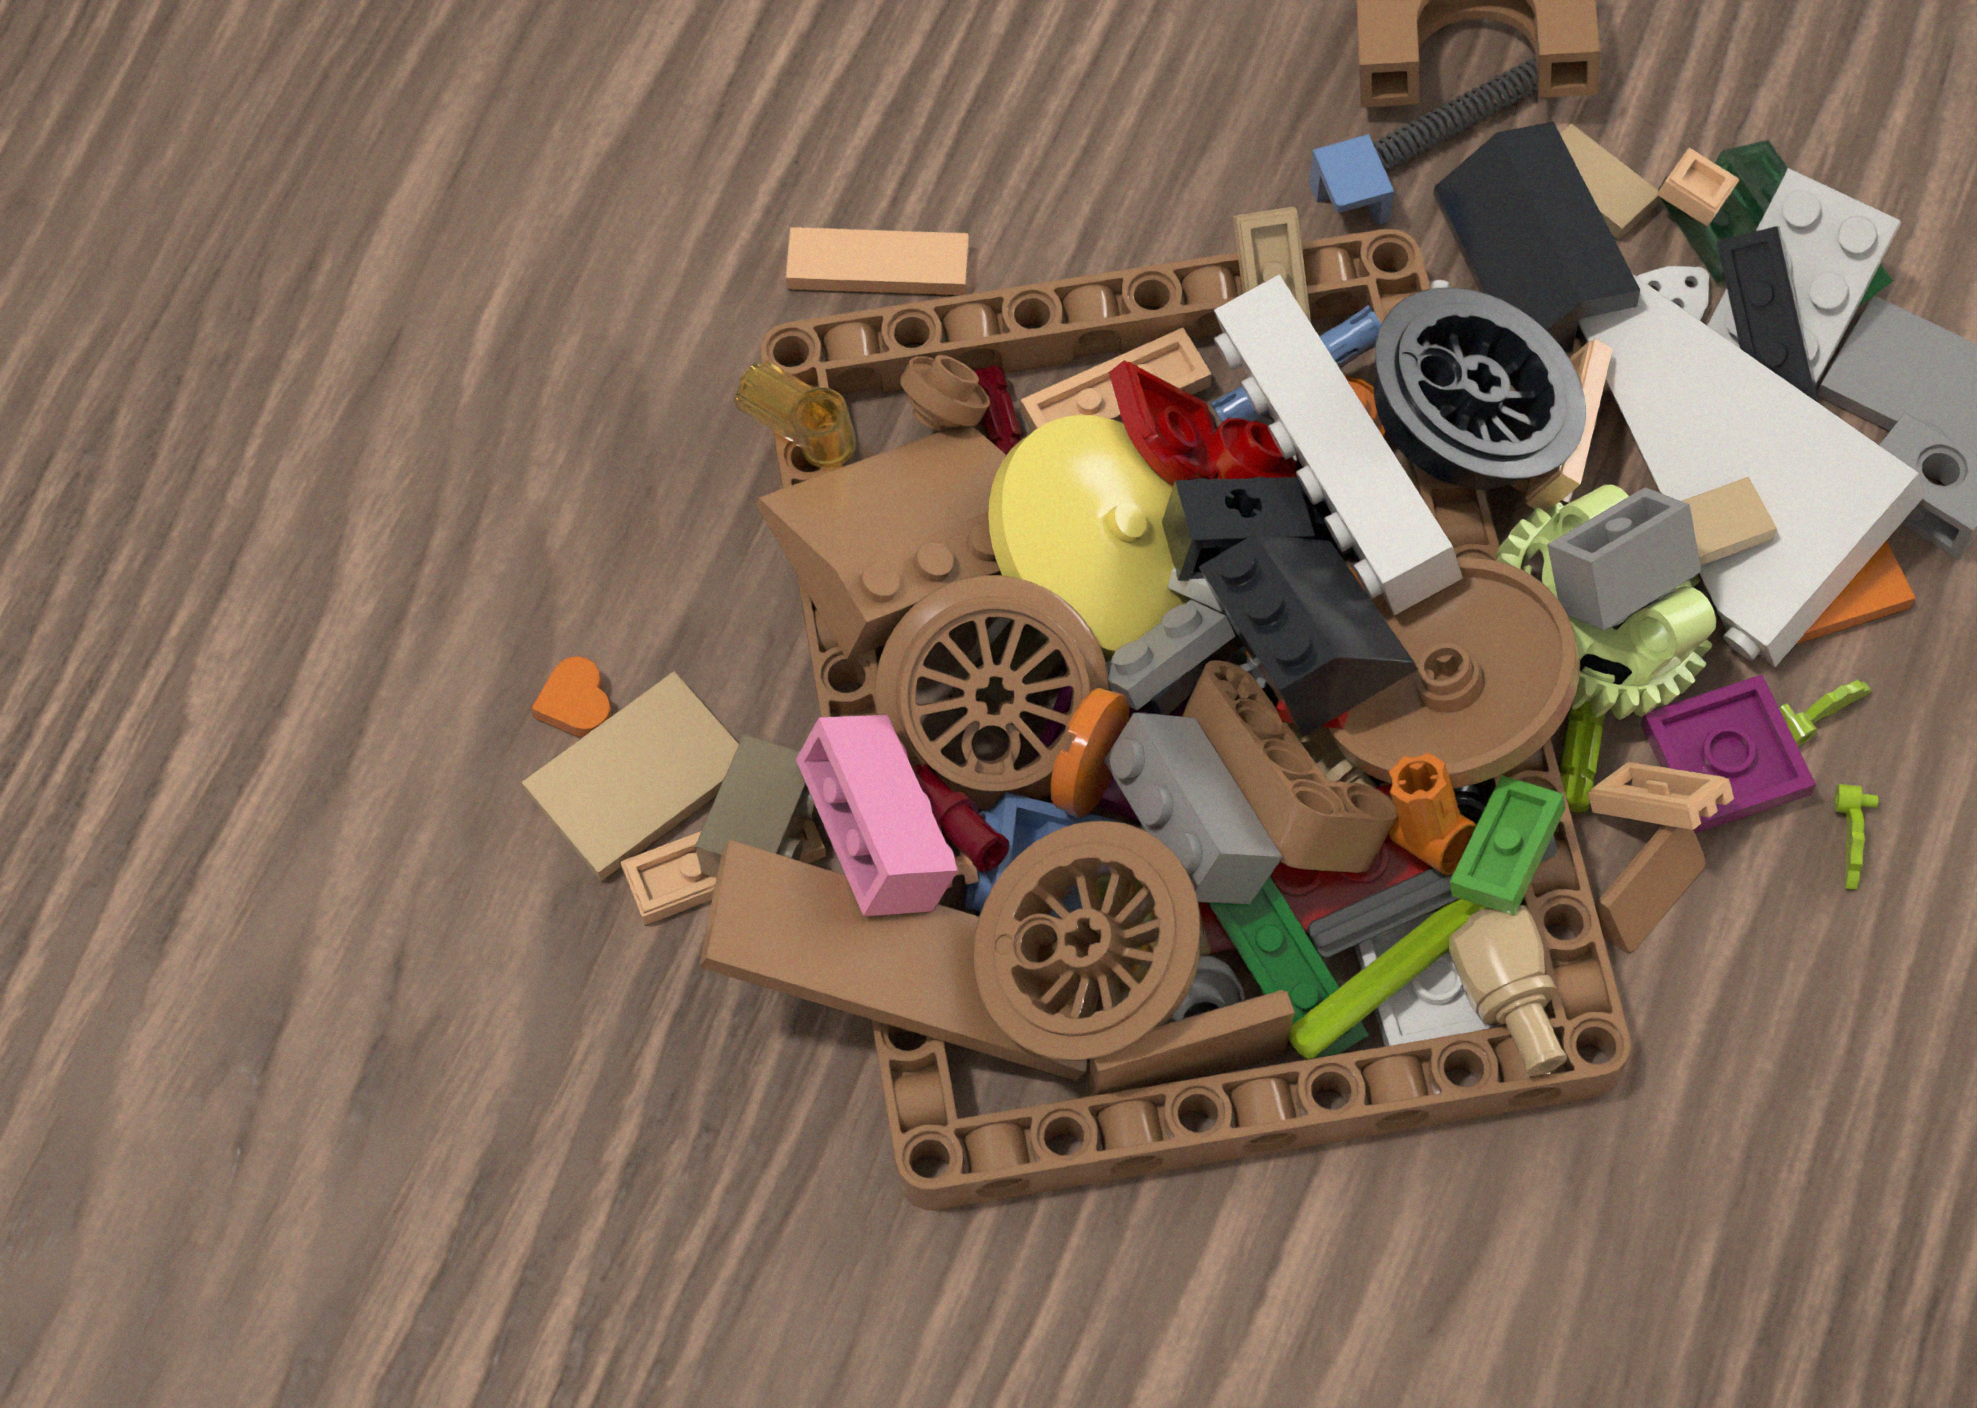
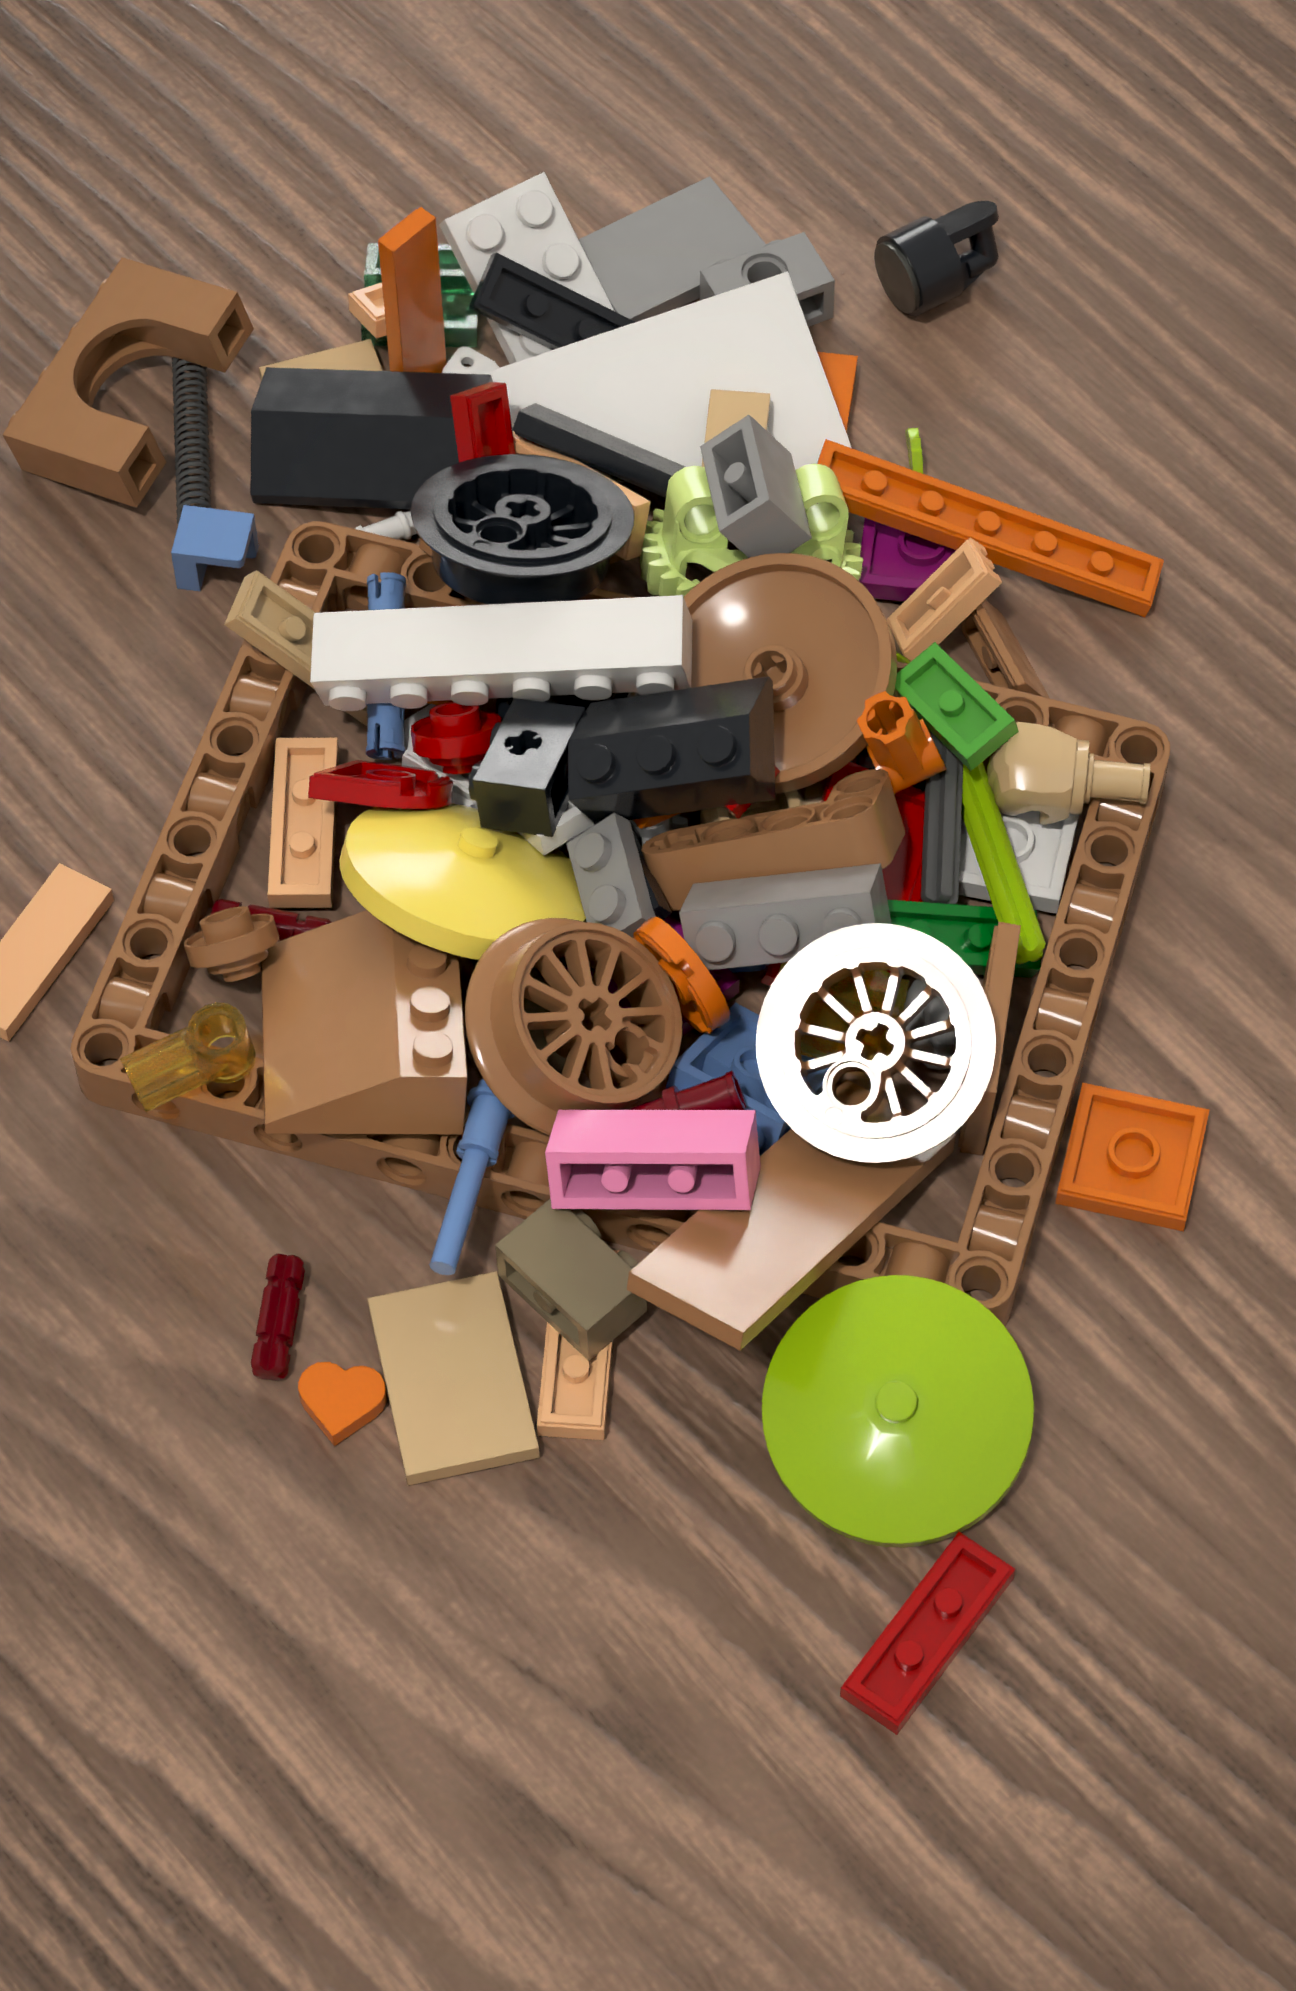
camera: 65 degrees left, 5 degrees down
(580, 1277) = (927, 1633): none -> red tile
(626, 613) = (277, 1317): none -> dark red axle
(769, 1148) = (898, 1411): none -> lime dish
(837, 676) = (477, 1150): none -> medium blue pin
(1160, 1243) = (1132, 1156): none -> orange tile
(1577, 308) = (482, 421): none -> red tile
(1626, 413) = (595, 448): none -> black tile
(1670, 186) = (413, 295): none -> orange tile
(1775, 801) = (1008, 533): none -> orange tile
(1849, 800) = (1041, 500): lime piece -> none

